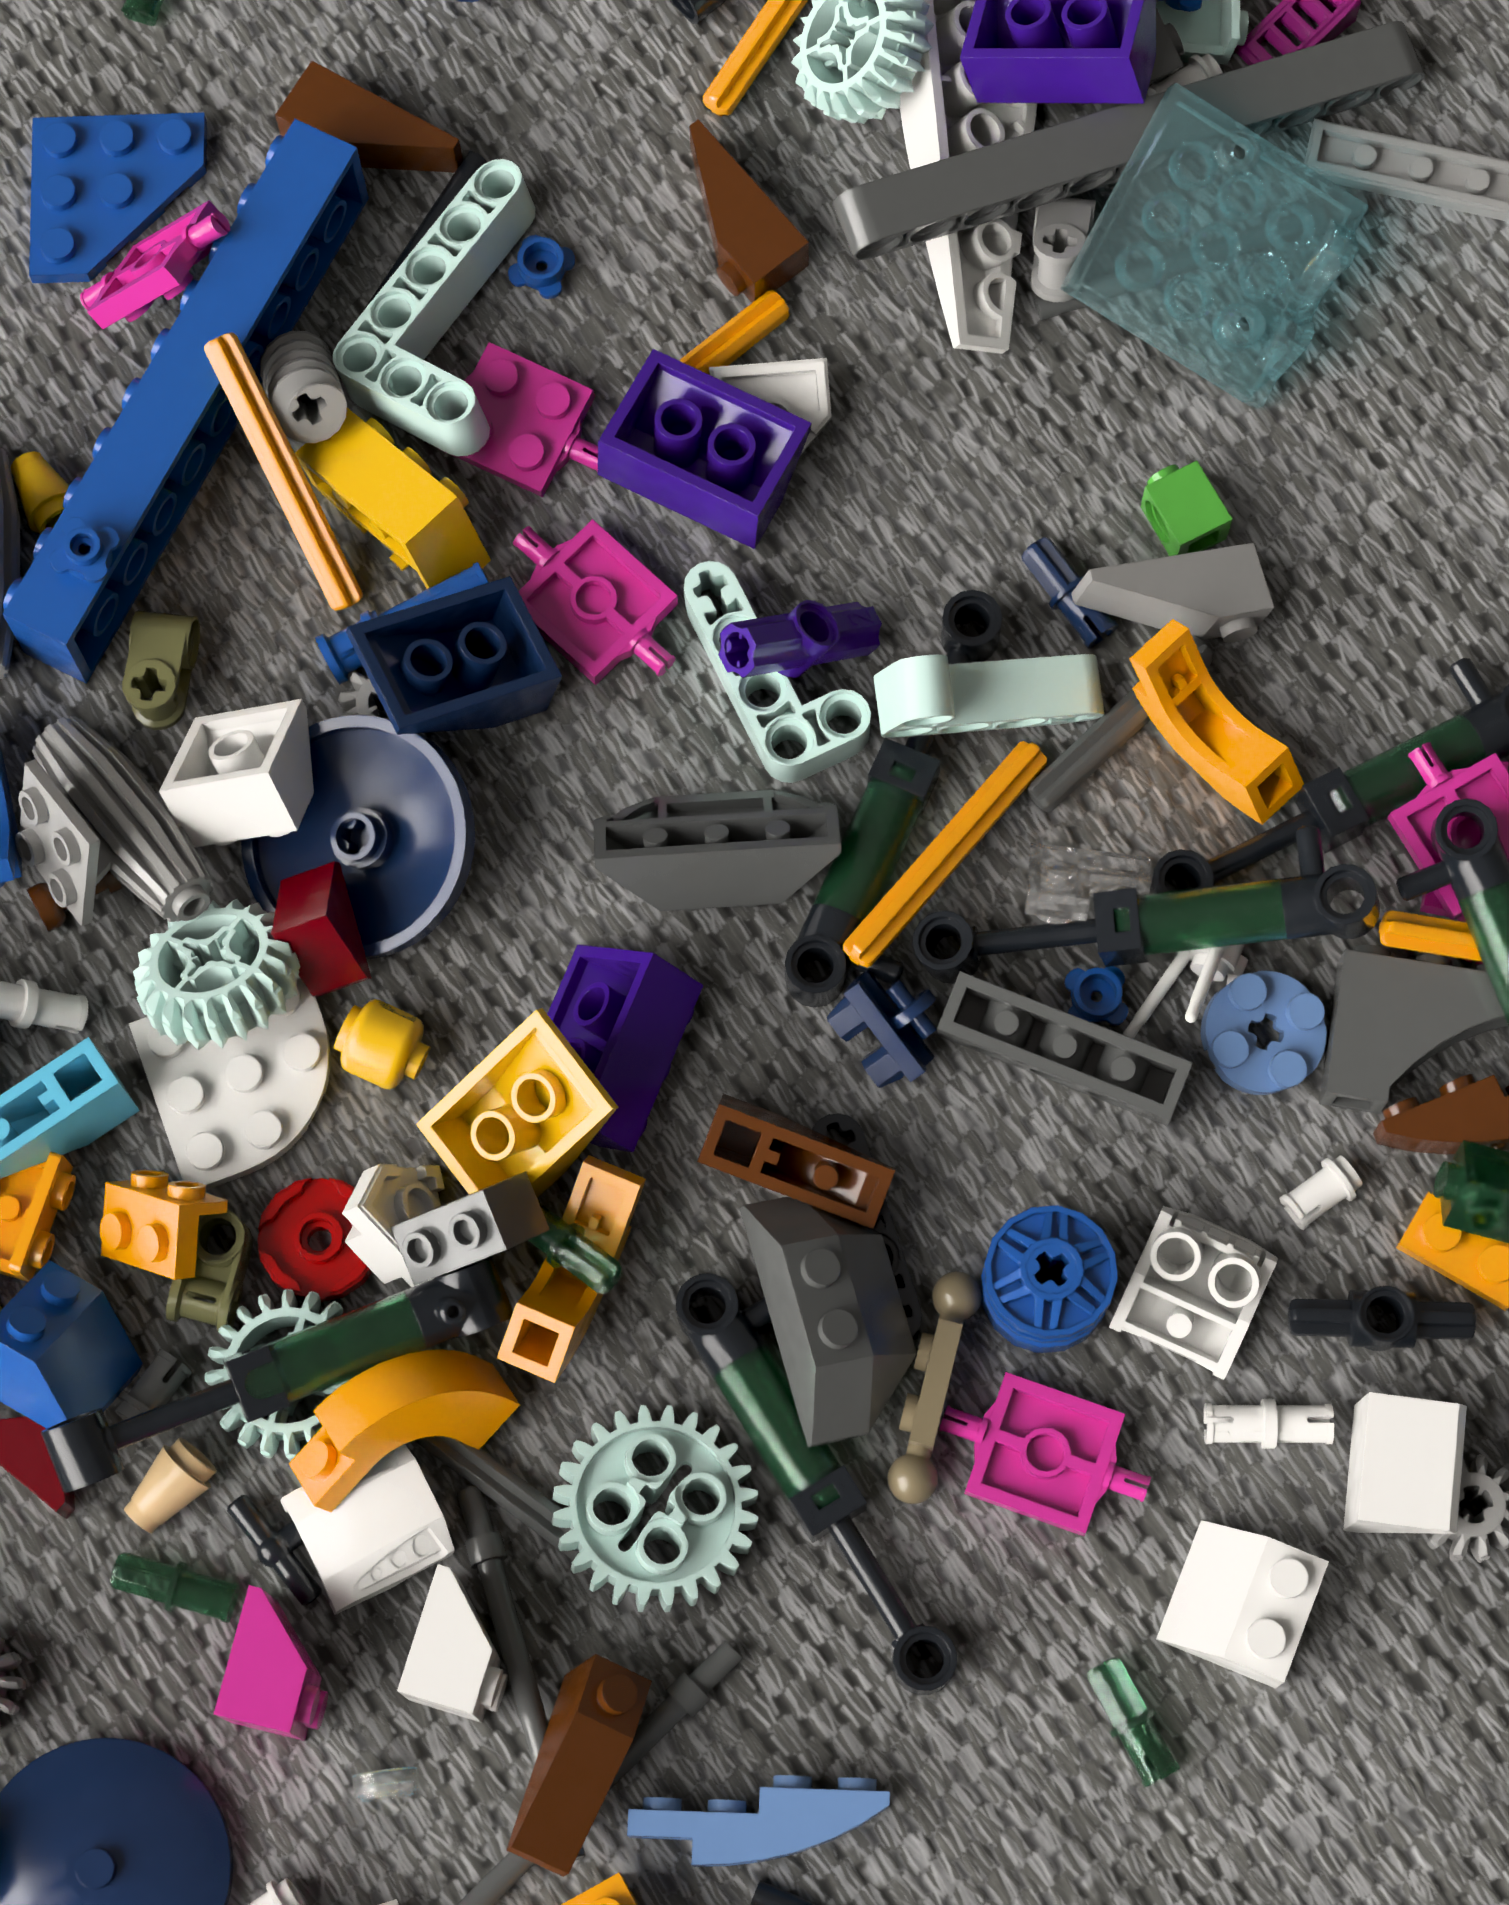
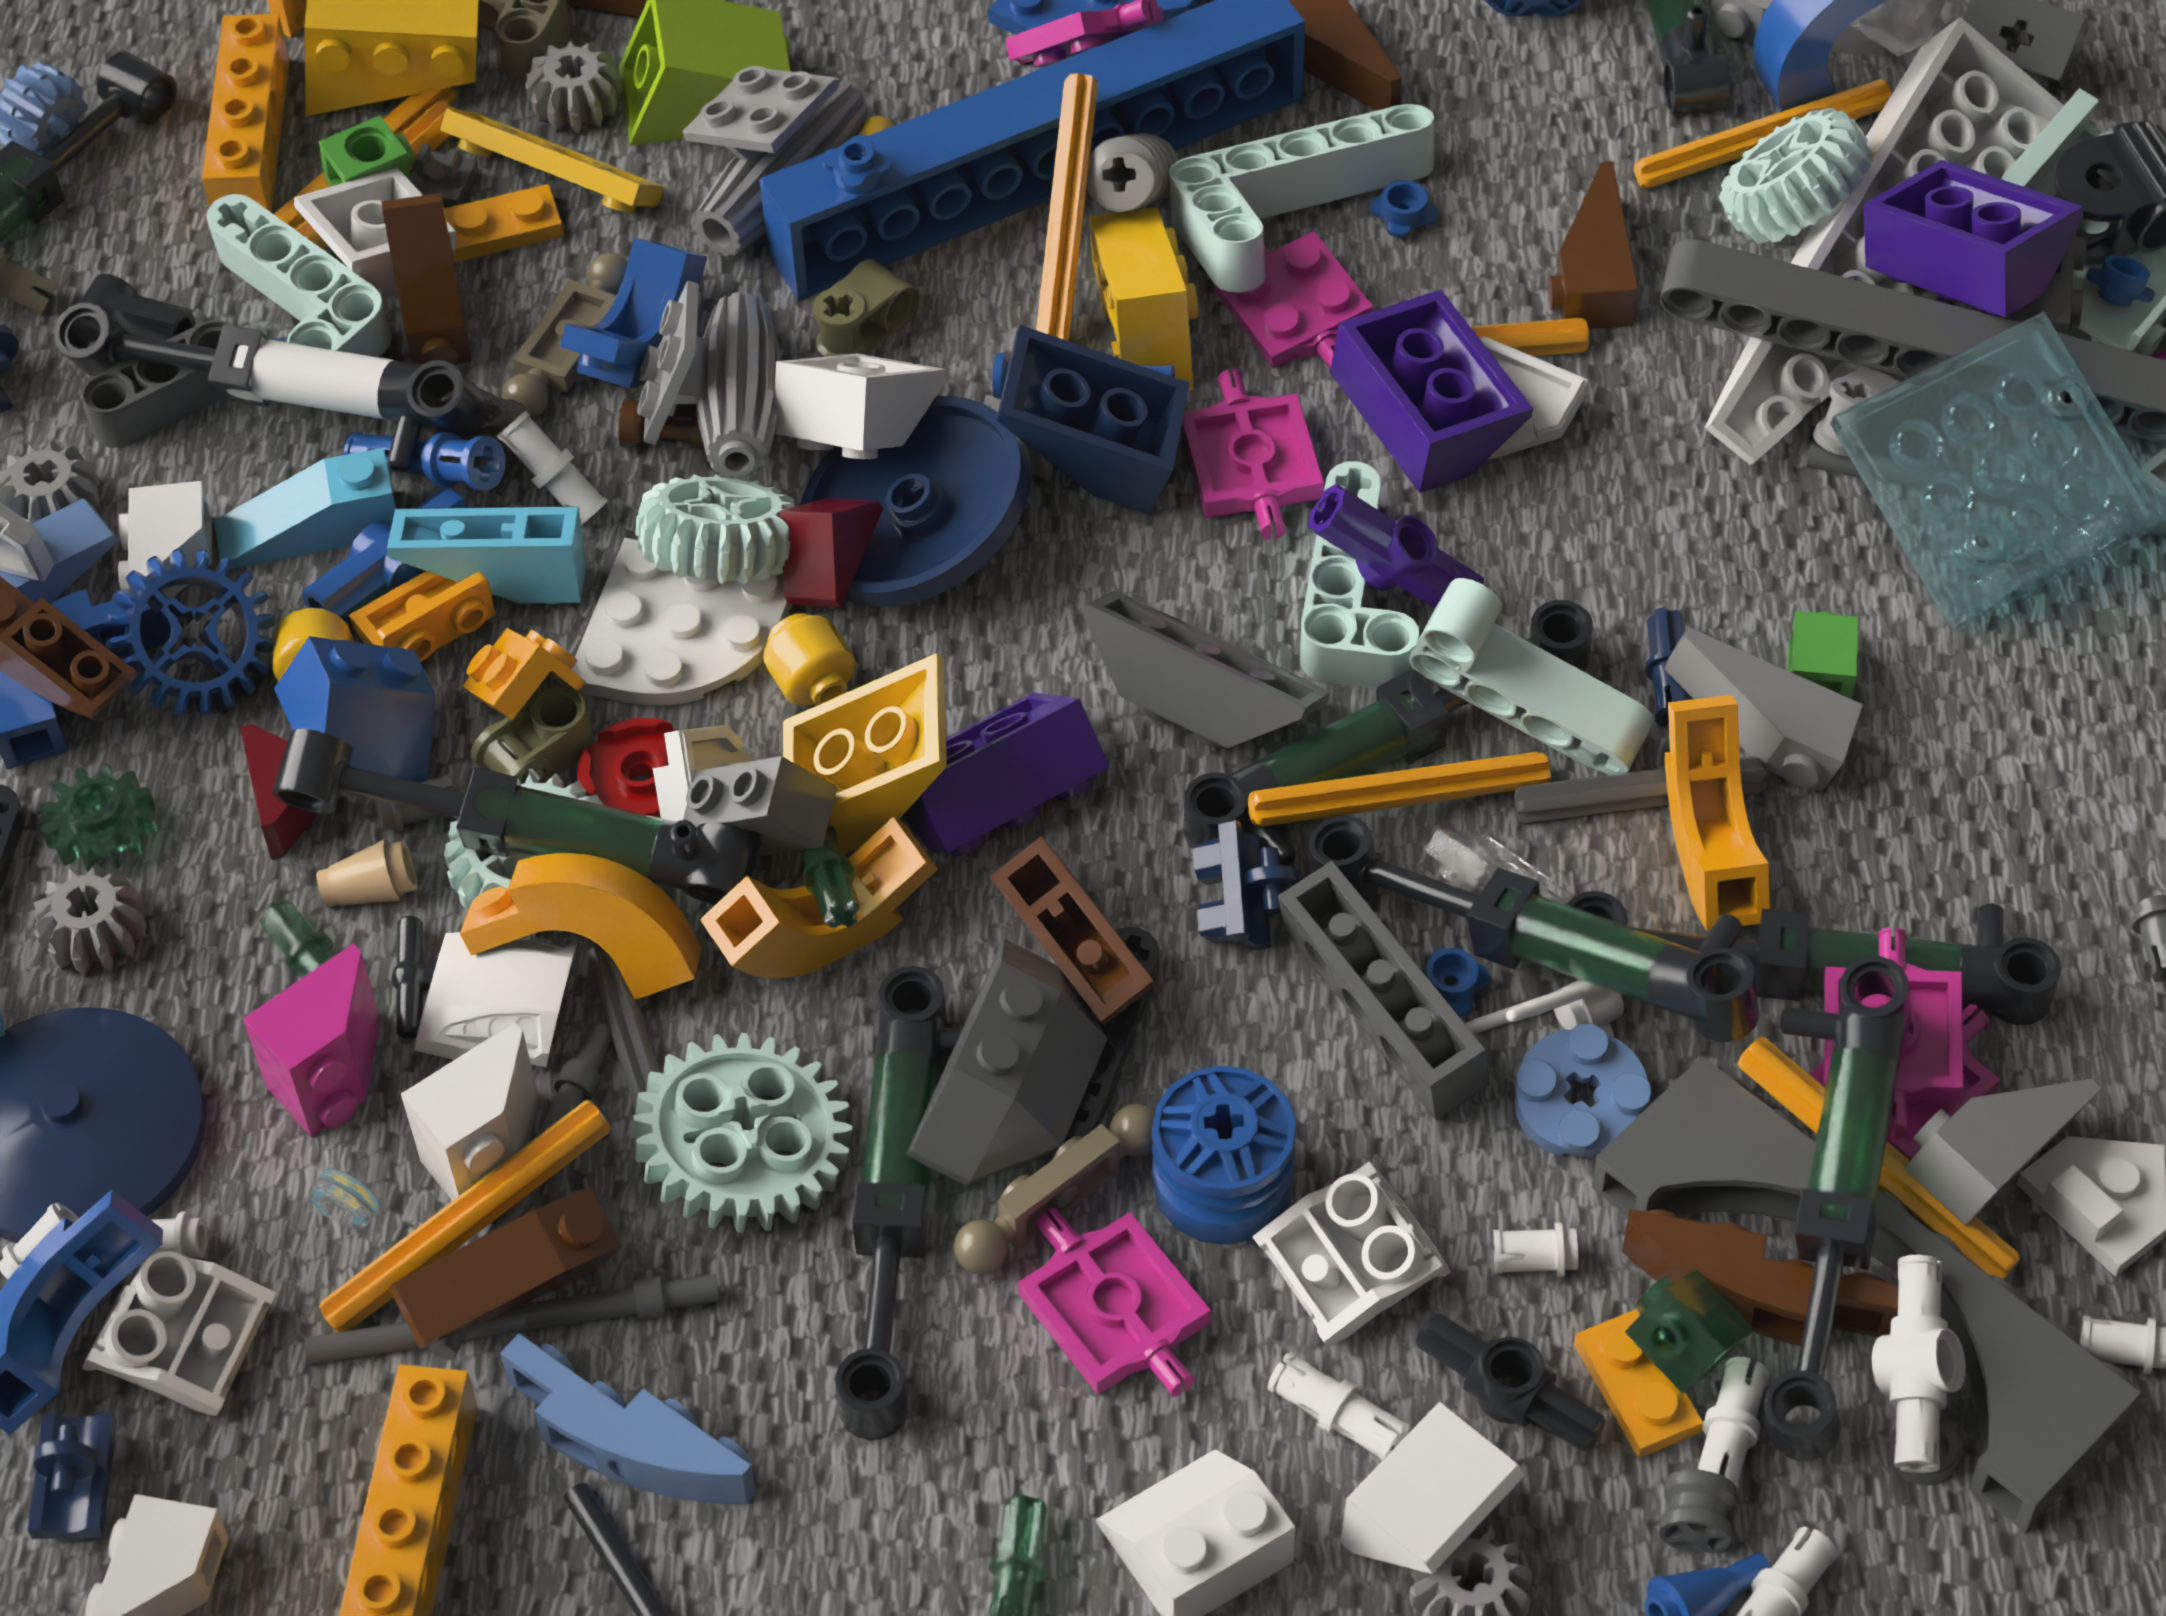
camera: 35 degrees right, 20 degrees down
(503, 1737) = (466, 1215): none -> light orange axle

